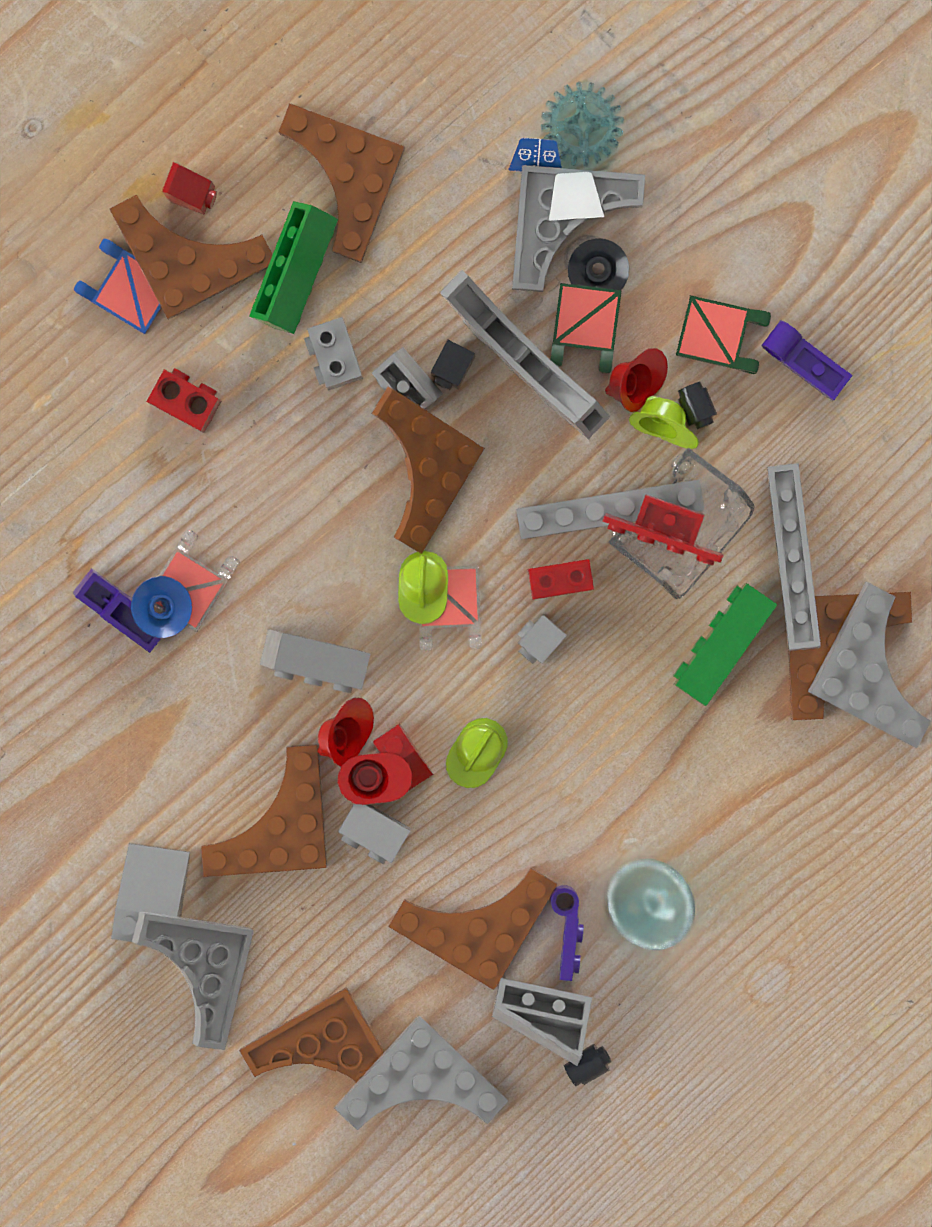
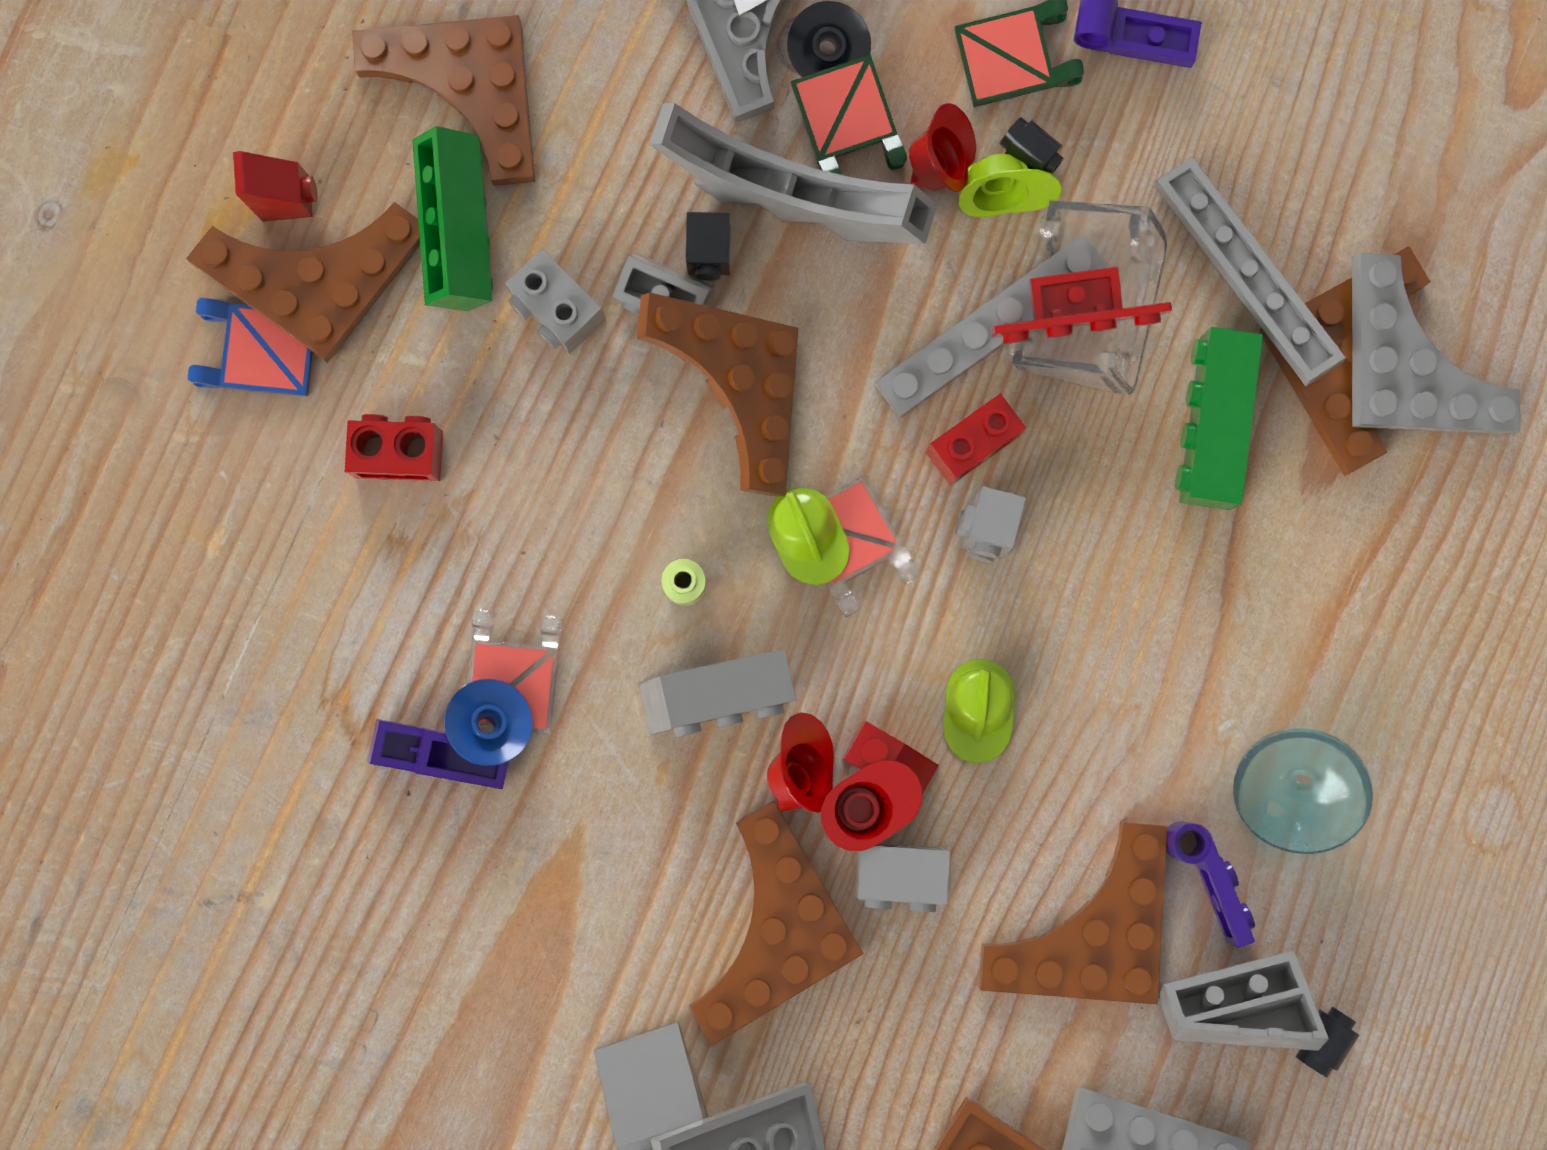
camera: 25 degrees left, 5 degrees down
(335, 586) = (691, 594): none -> yellowish green brick

